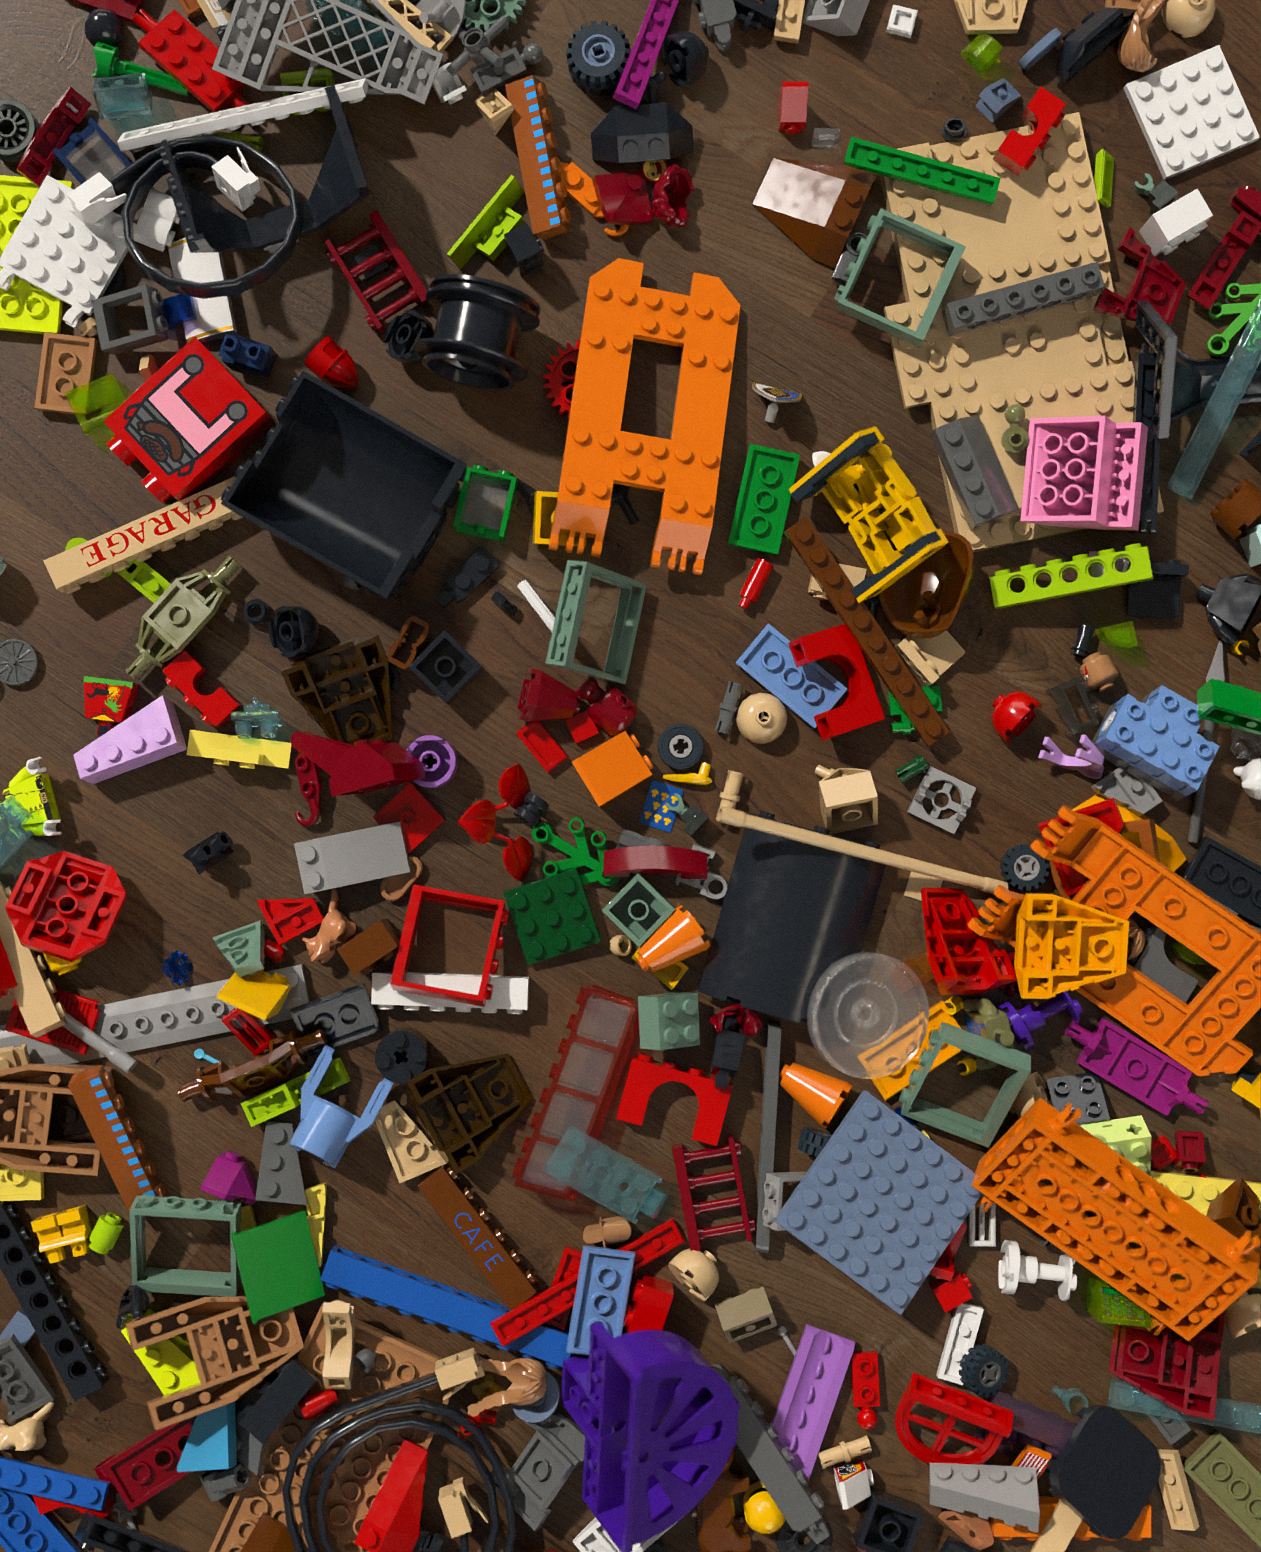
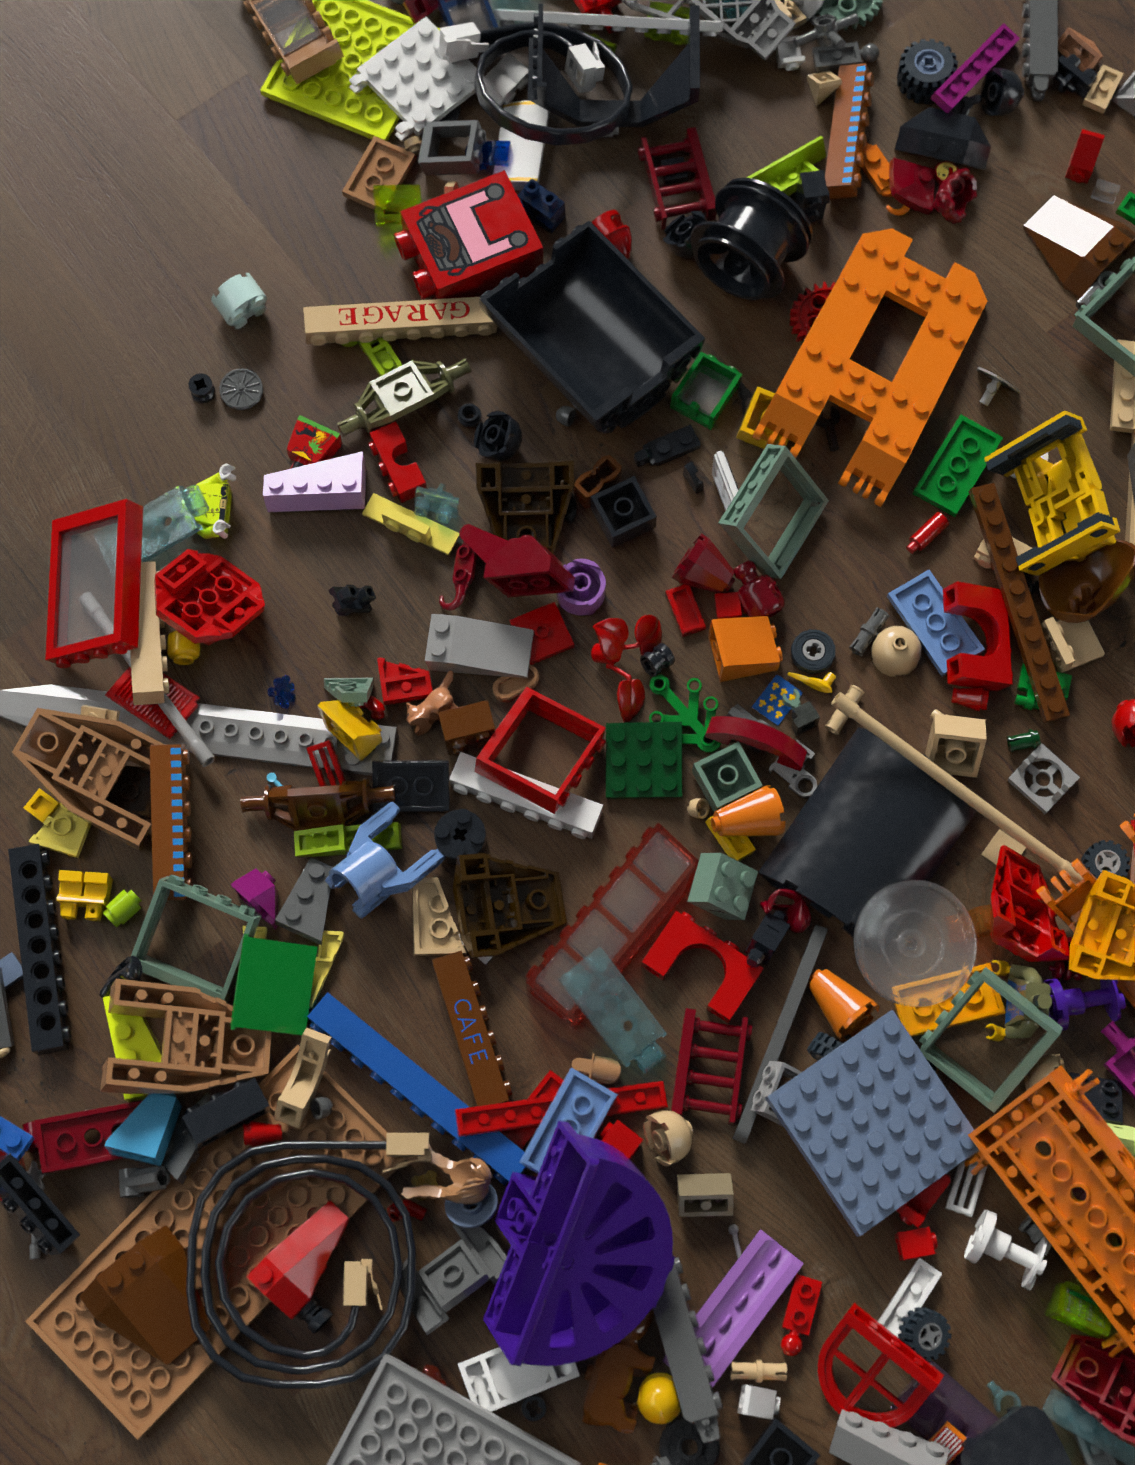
camera: 20 degrees right, 15 degrees down
(849, 742) = (971, 697): none -> red cone

